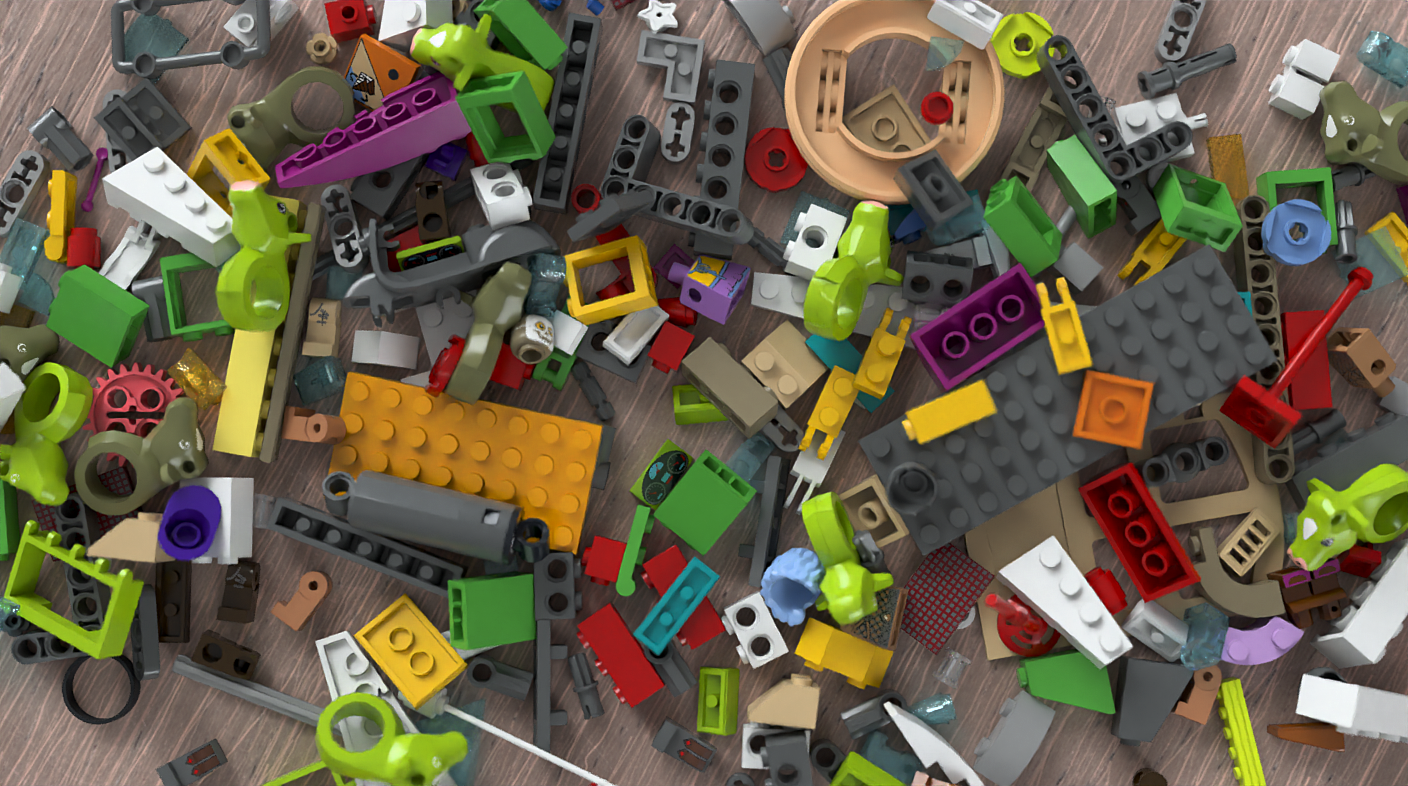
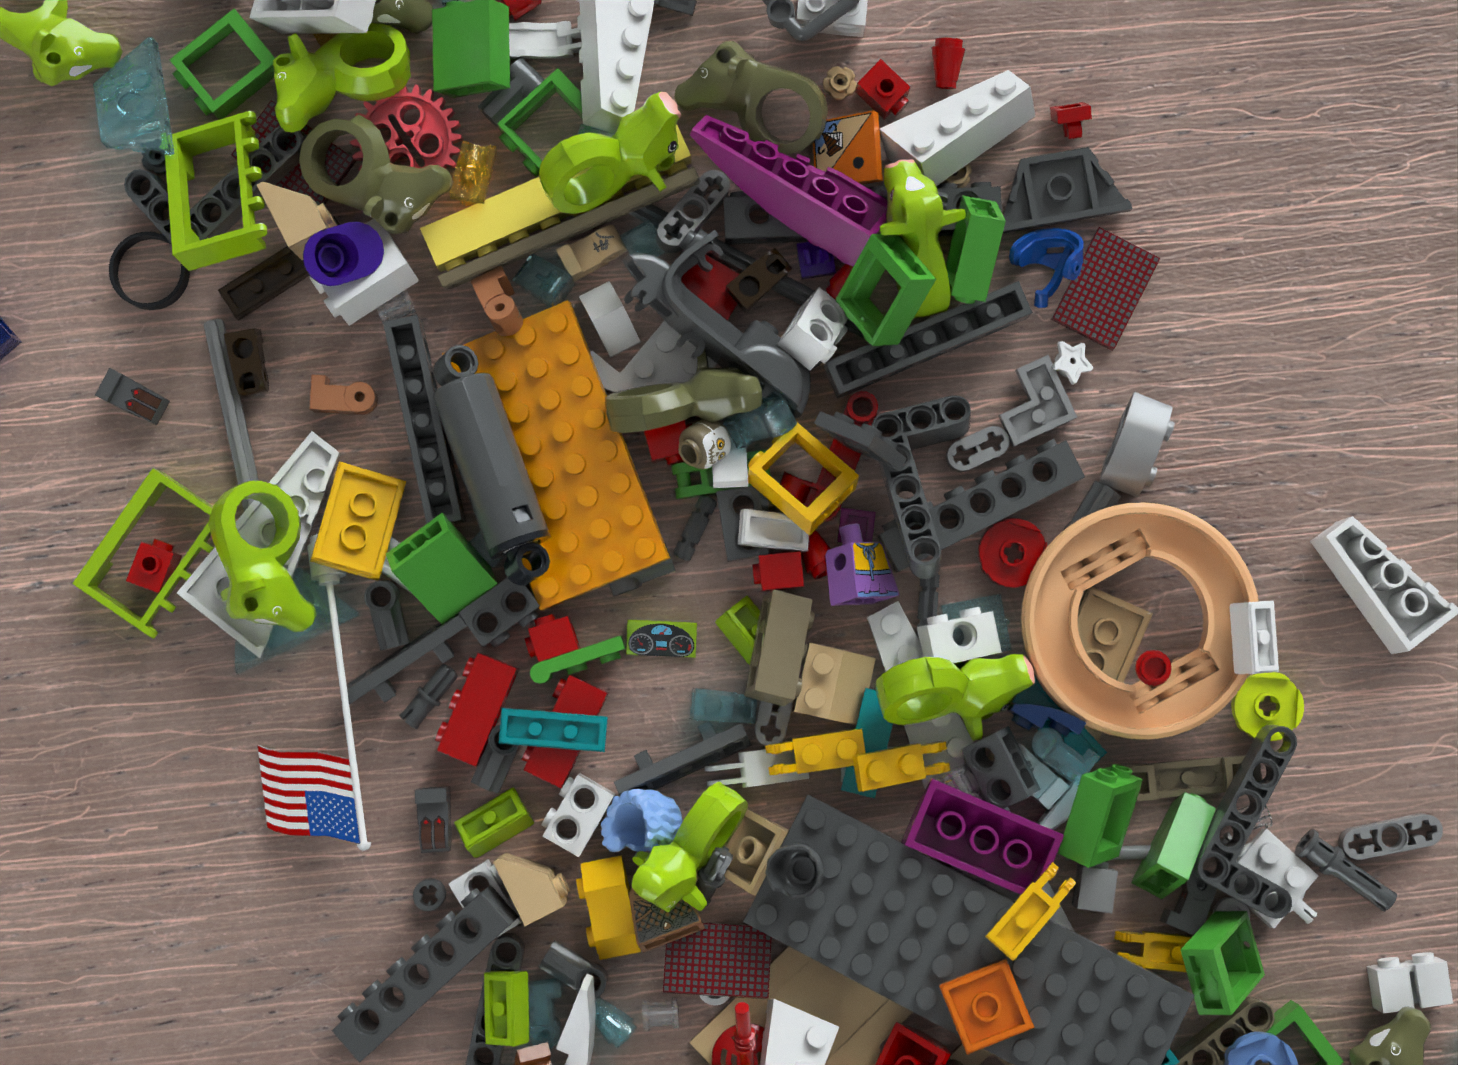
camera: 55 degrees right, 0 degrees up
(145, 636) = (217, 280): dark grey beam -> none
(223, 152) = (687, 63): yellow window -> none
(240, 592) = (310, 336): dark brown leg -> none
(429, 253) = (720, 302): slope -> none
(444, 366) = (629, 383): red tile -> none
(704, 502) = (661, 694): bright green brick -> none
(932, 189) = (1076, 712): dark grey slope -> none
(942, 52) = (1207, 639): clear light blue tile -> none
(949, 412) = (884, 859): yellow window -> none
(1228, 164) = (1285, 966): clear yellow tile -> none

